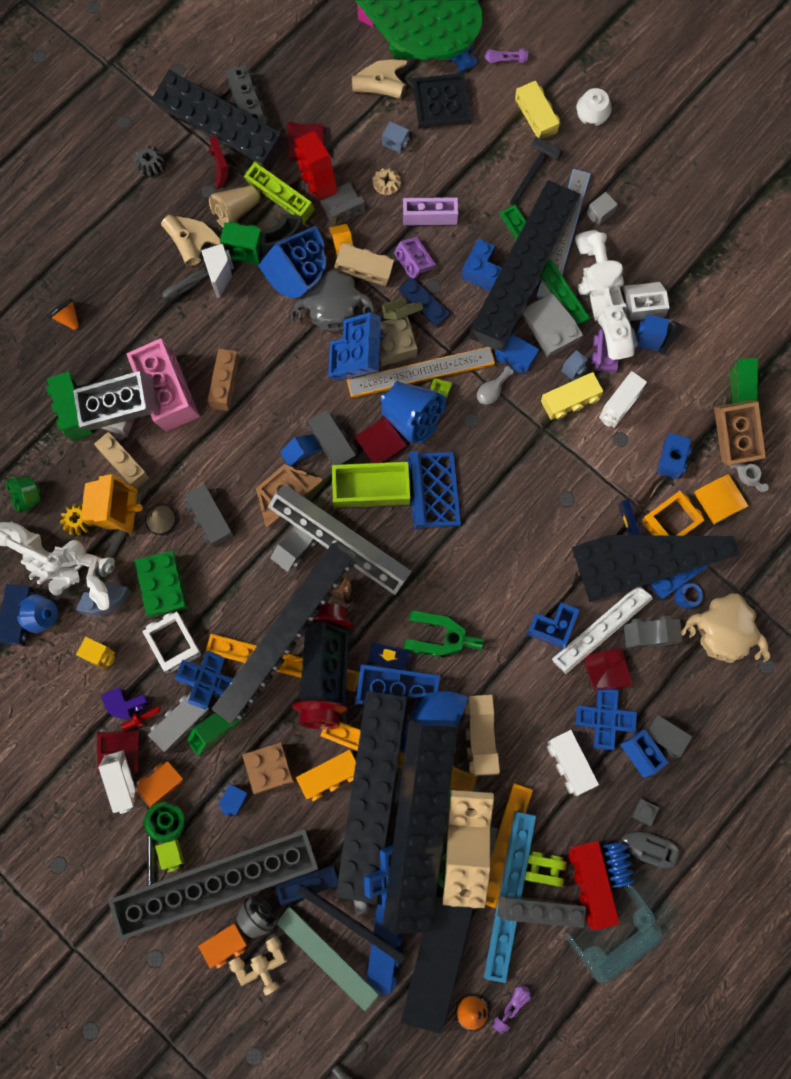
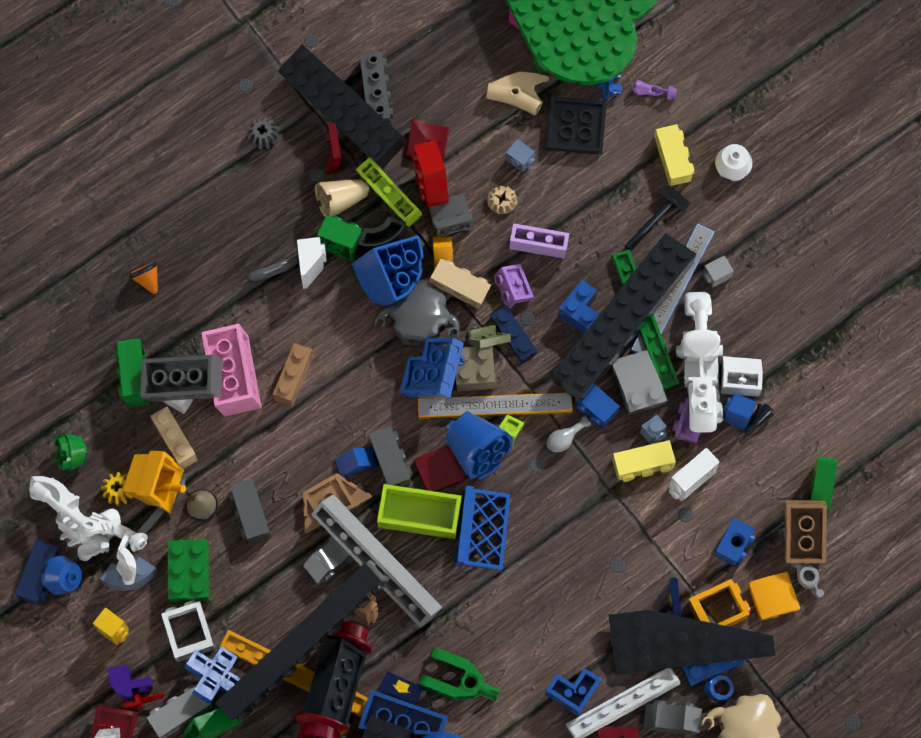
camera: 10 degrees right, 5 degrees down
(189, 236) = (288, 220): tan pin -> none

